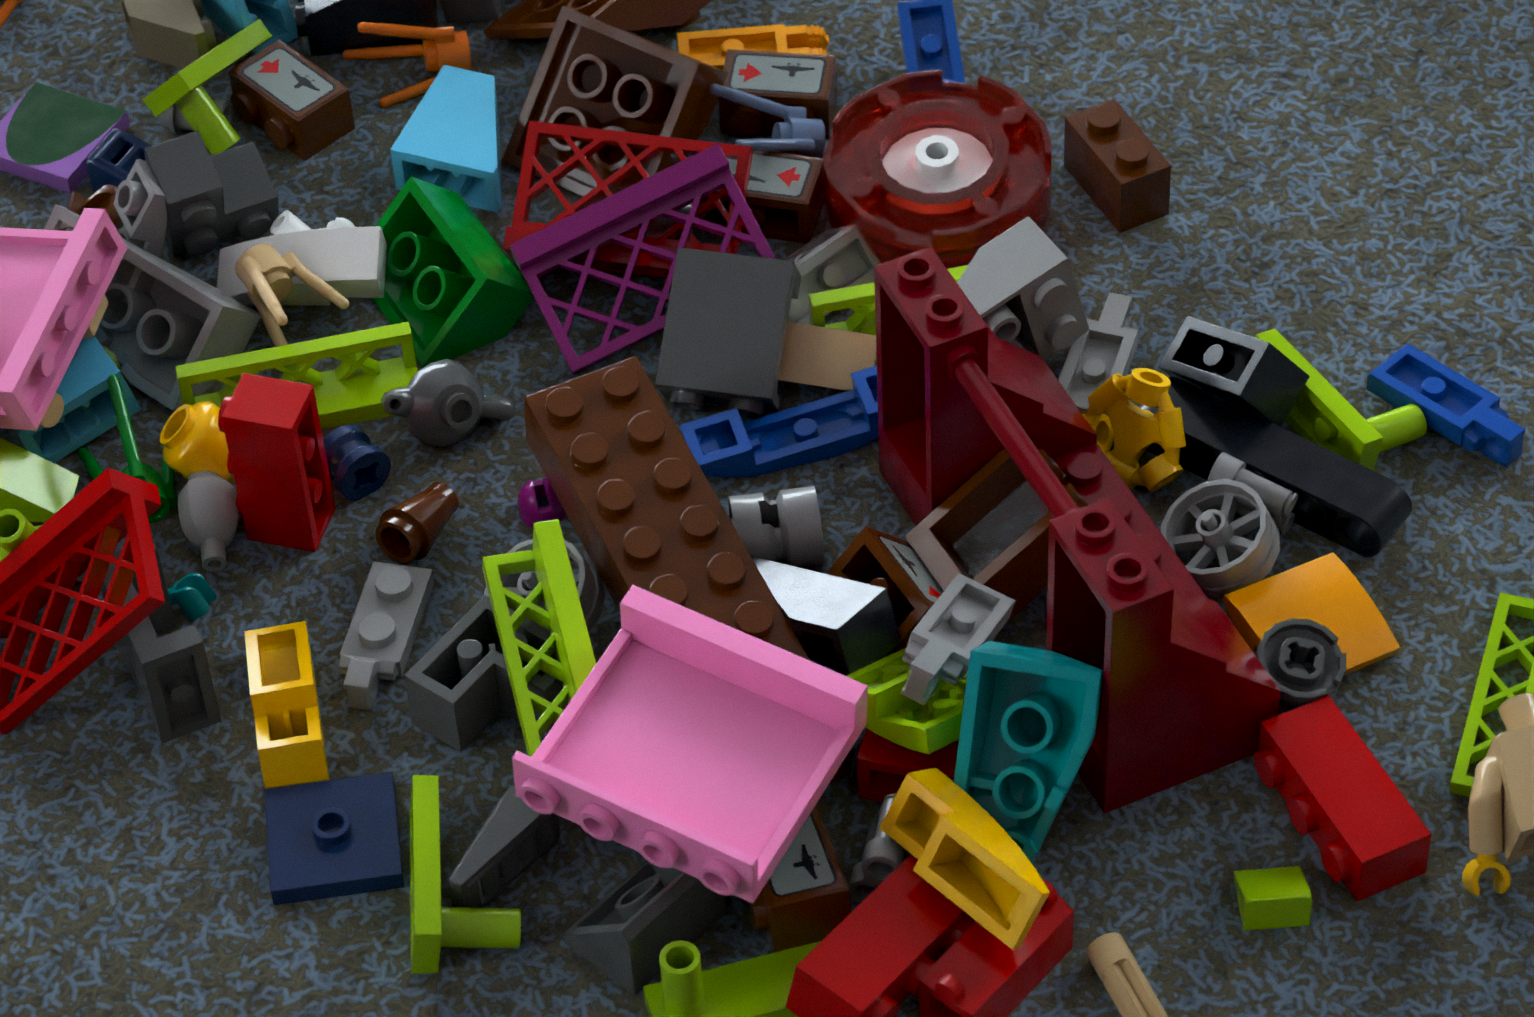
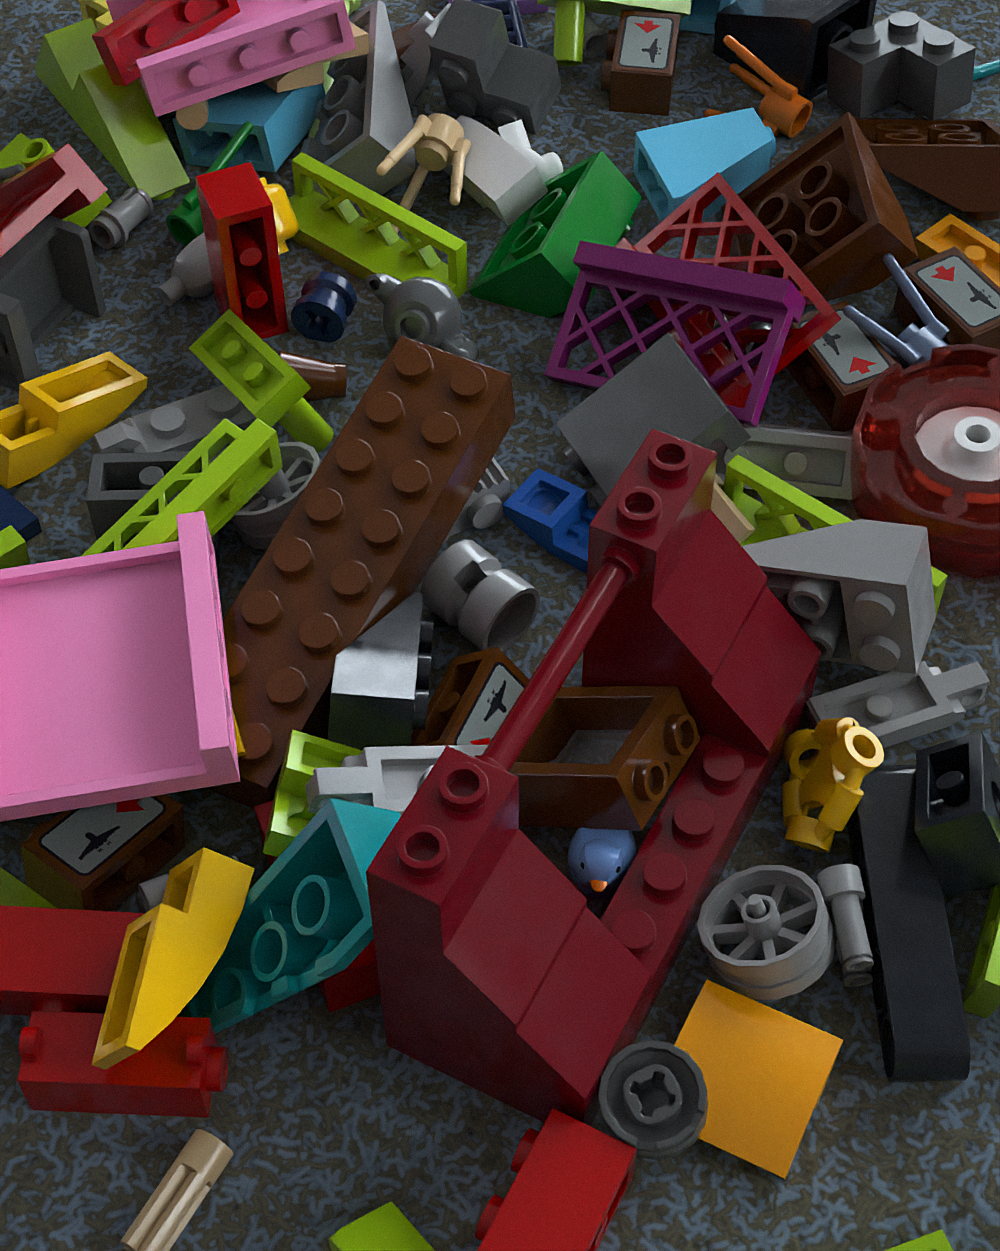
camera: 50 degrees right, 5 degrees up
(192, 595) = (120, 302): teal hand -> none
(400, 535) = (261, 380): none -> lime piece

